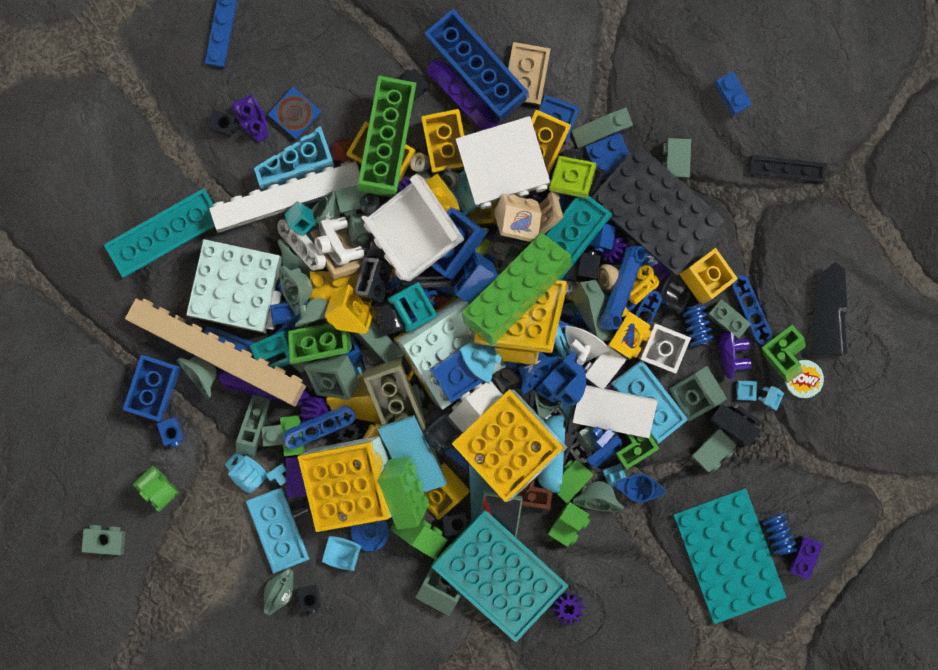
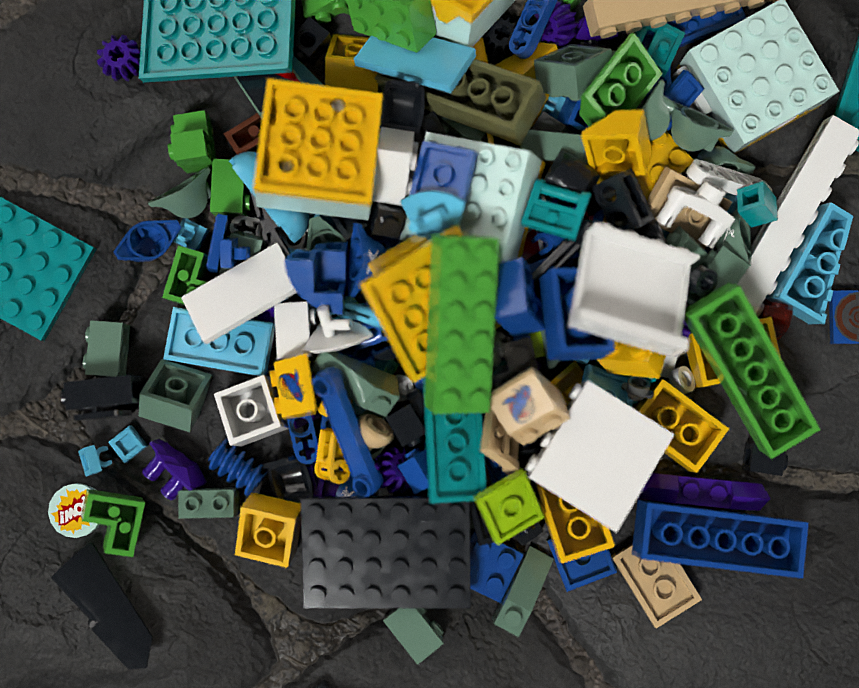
camera: 140 degrees right, 0 degrees up
(754, 309) = (193, 538): blue beam -> none

